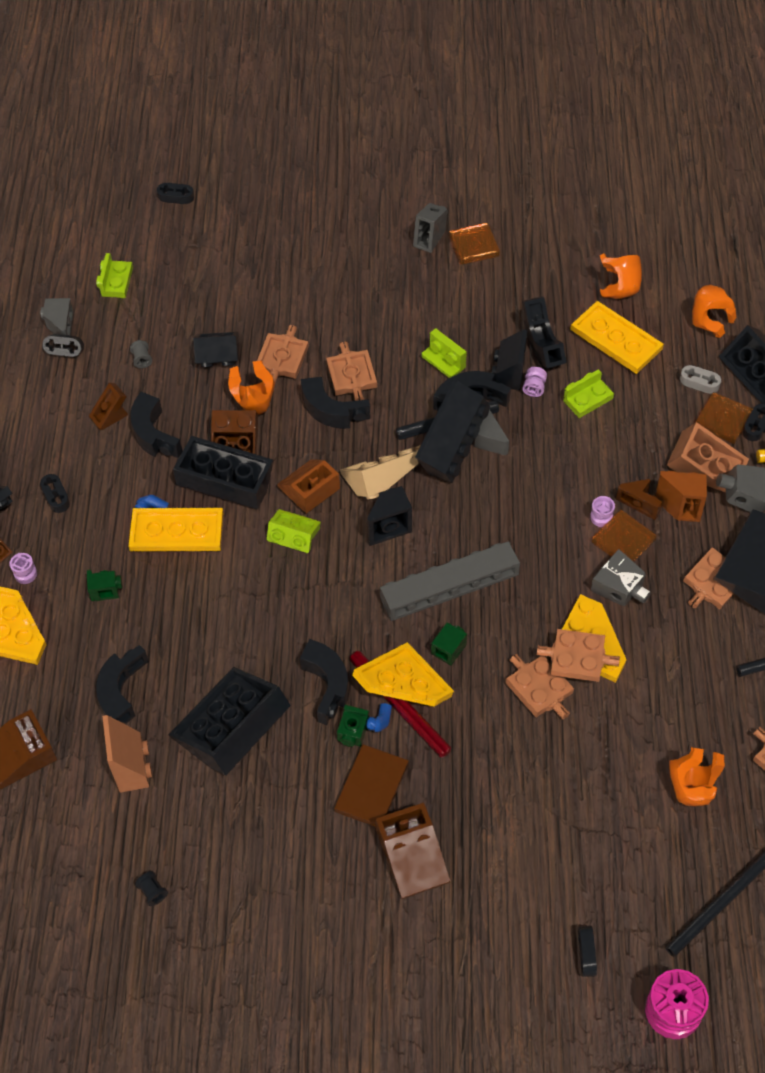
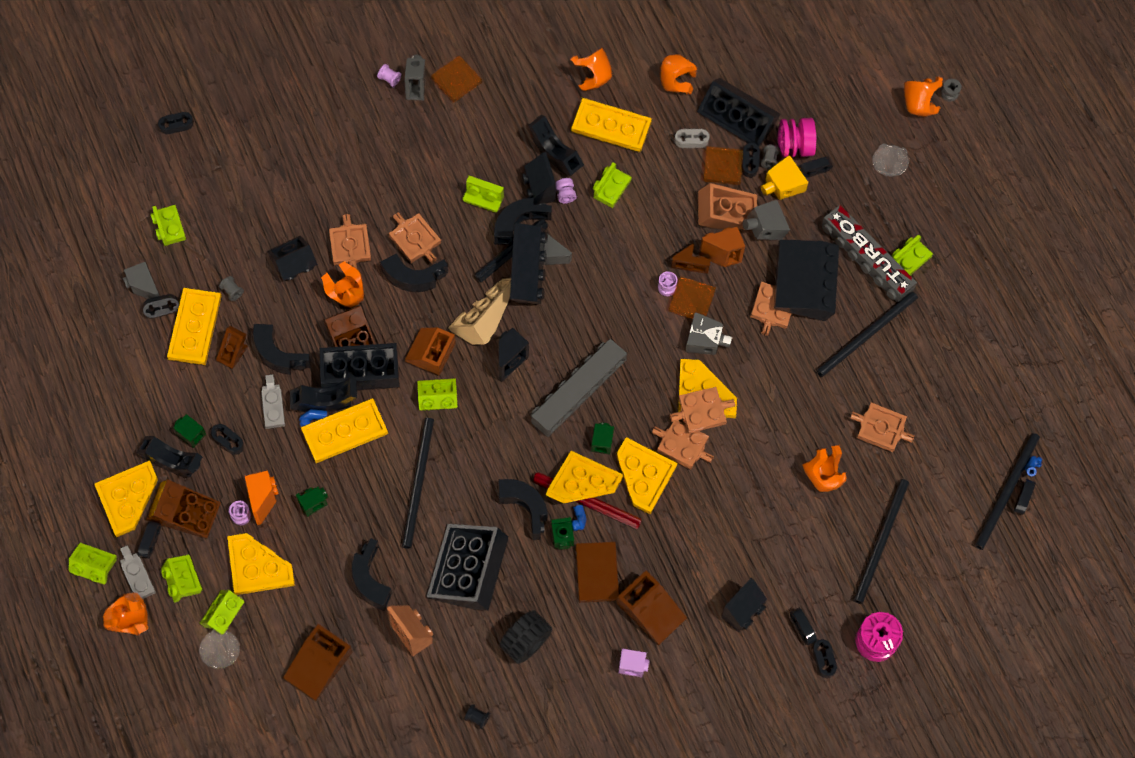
camera: 30 degrees left, 10 degrees up
(21, 470) = (189, 430): none -> dark green brick
(51, 557) = (261, 494): none -> orange slope
(84, 376) = (194, 326): none -> yellow plate
(119, 477) = (272, 404): none -> light grey hinge
(175, 491) = (328, 399): none -> black arch
(223, 613) = (418, 483): none -> black piece
(248, 819) = (525, 636): none -> black tyre
(360, 905) = (633, 663): none -> lavender brick
(404, 215) = (389, 75): none -> lavender bush
(479, 700) = (644, 473): none -> yellow plate
(524, 894) = (744, 606): none -> black slope
(603, 1003) = (829, 658): none -> black beam

